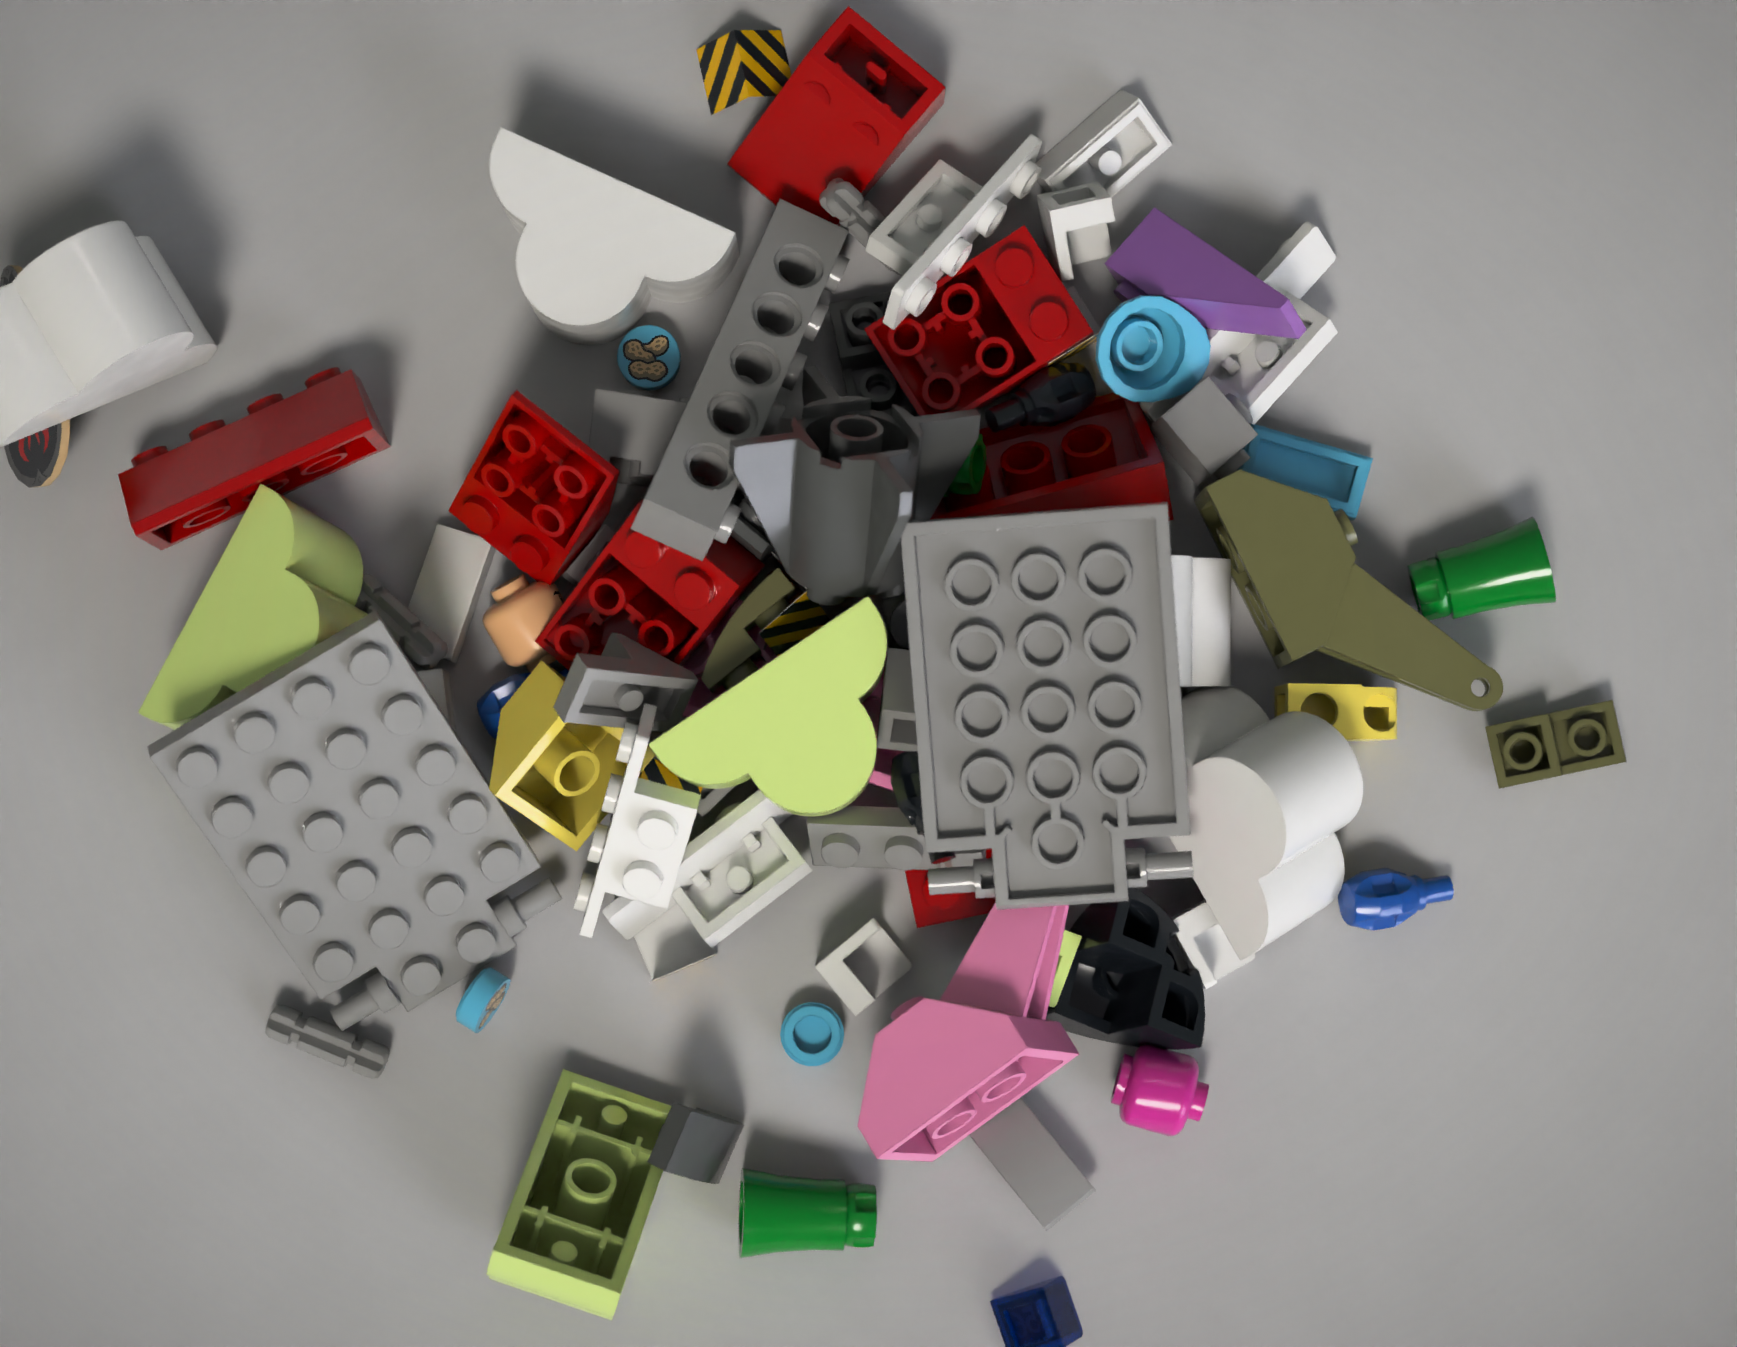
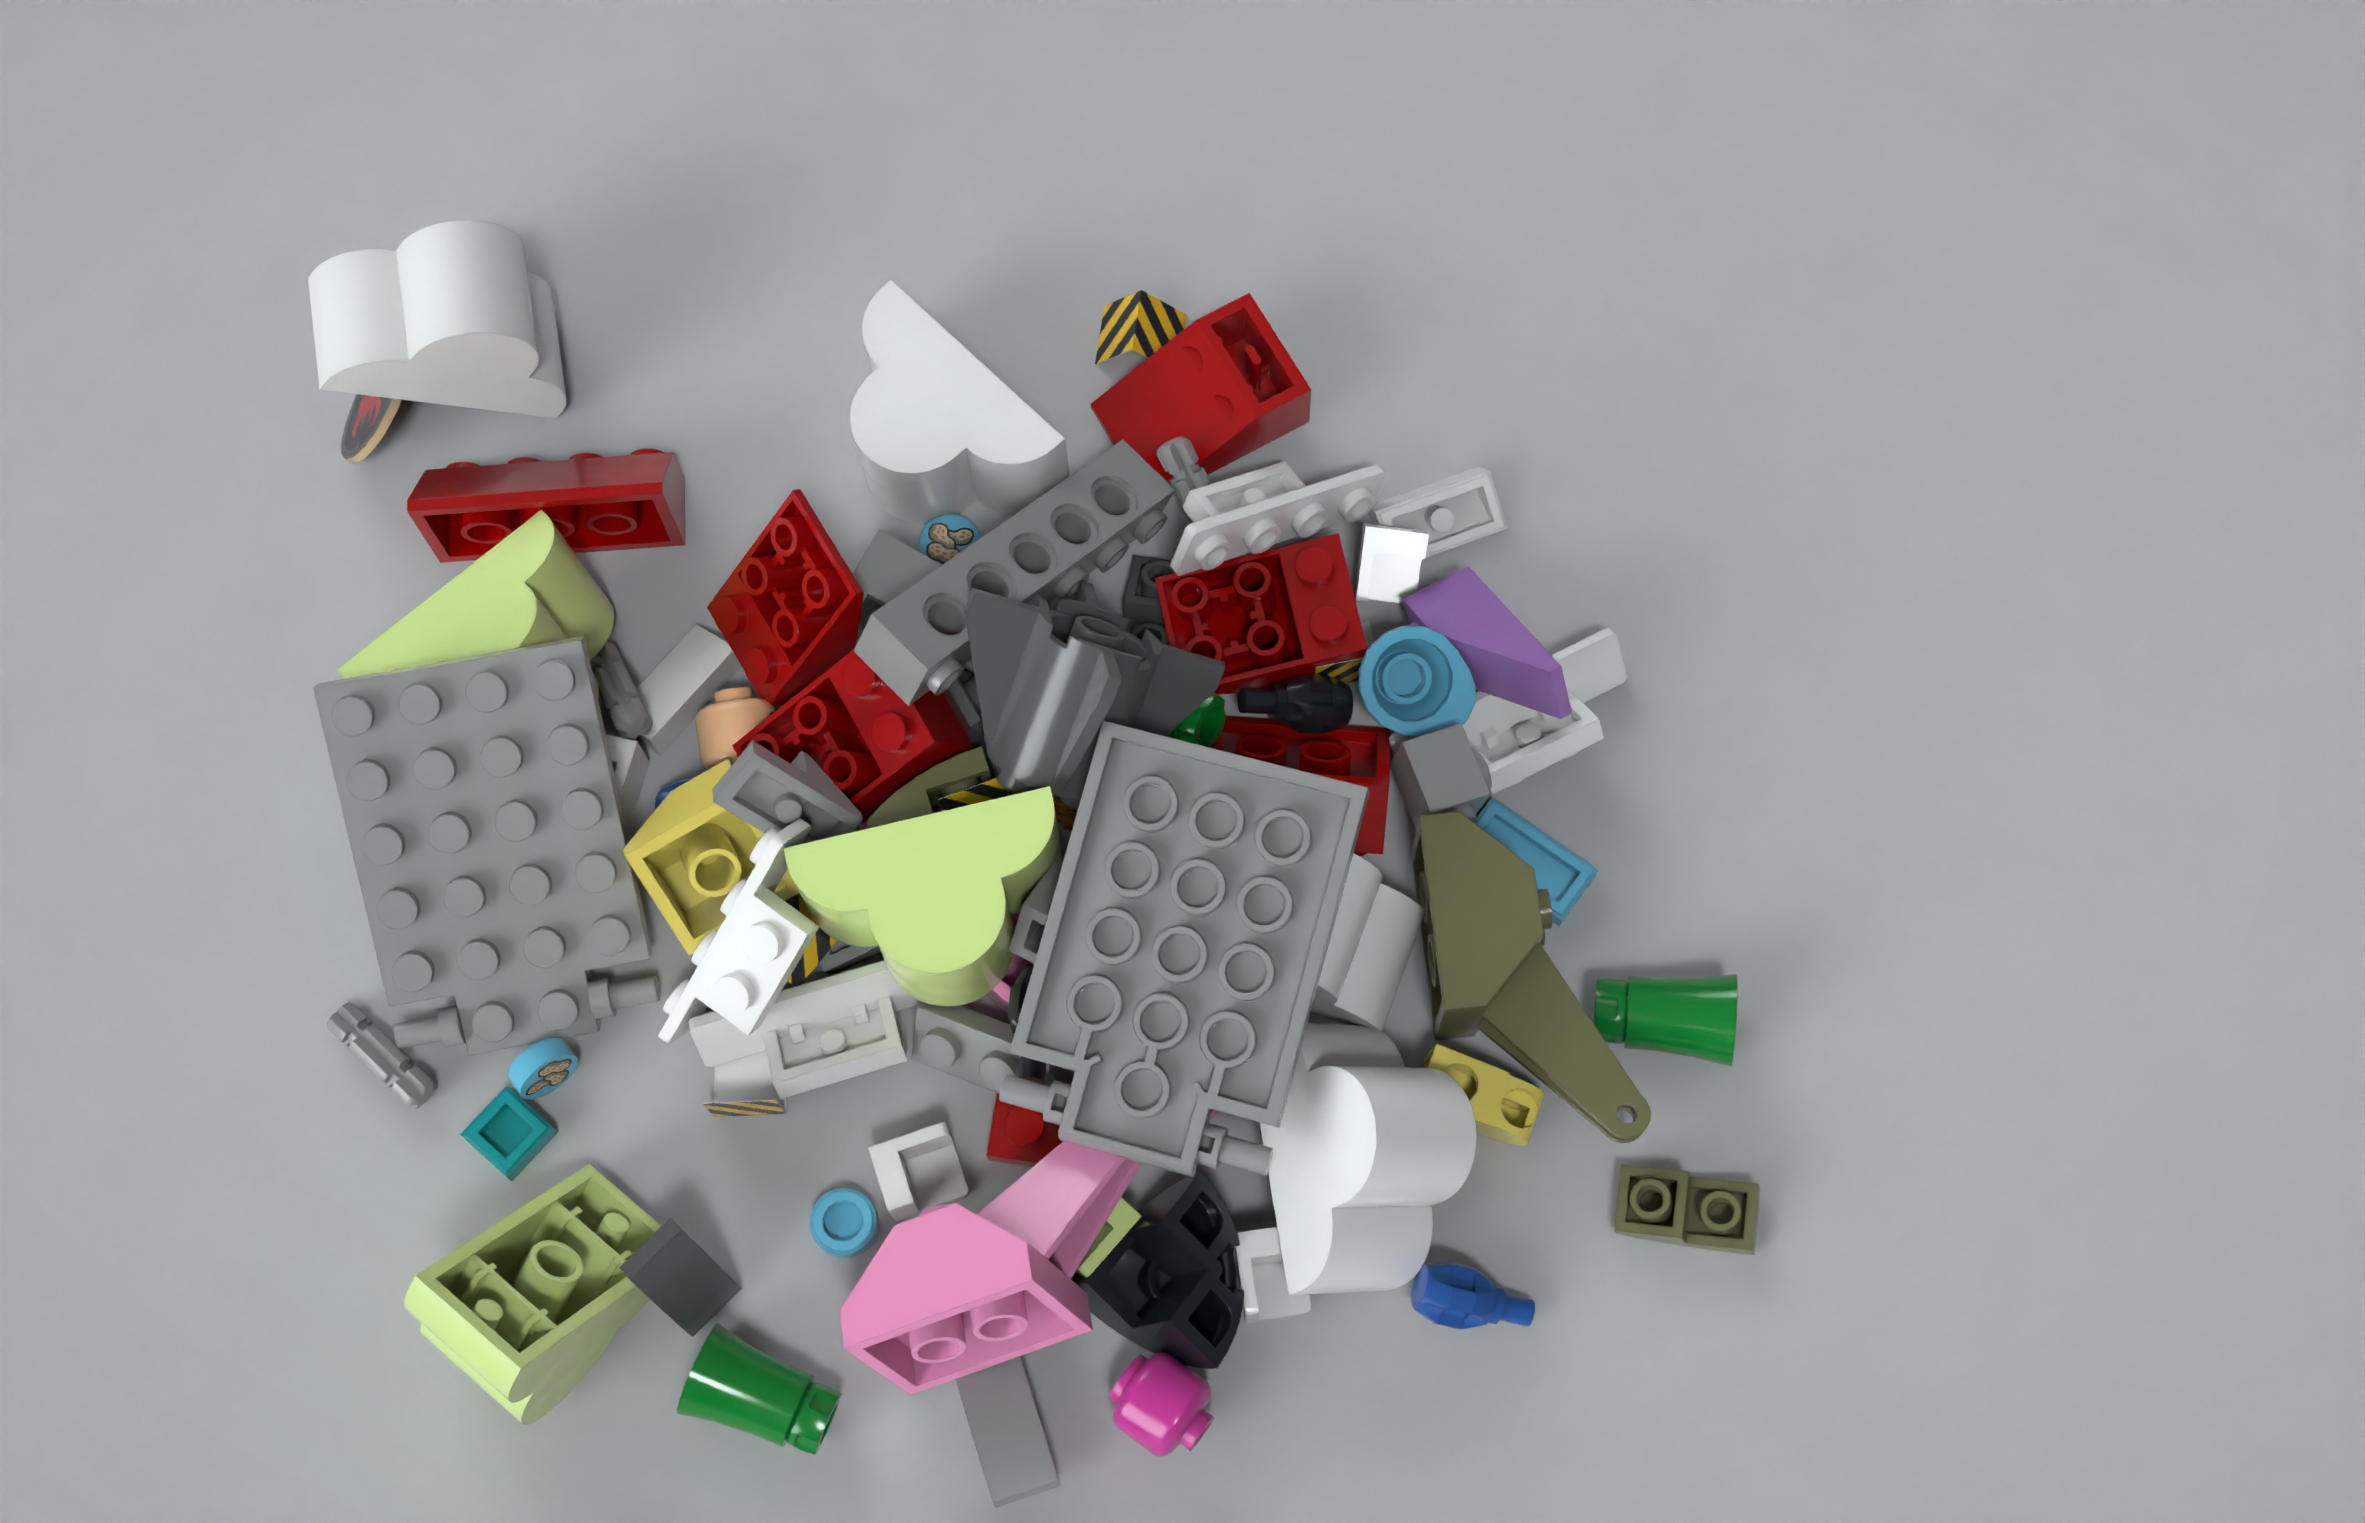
camera: 25 degrees right, 15 degrees down
(475, 1067) = (509, 1133): none -> teal tile

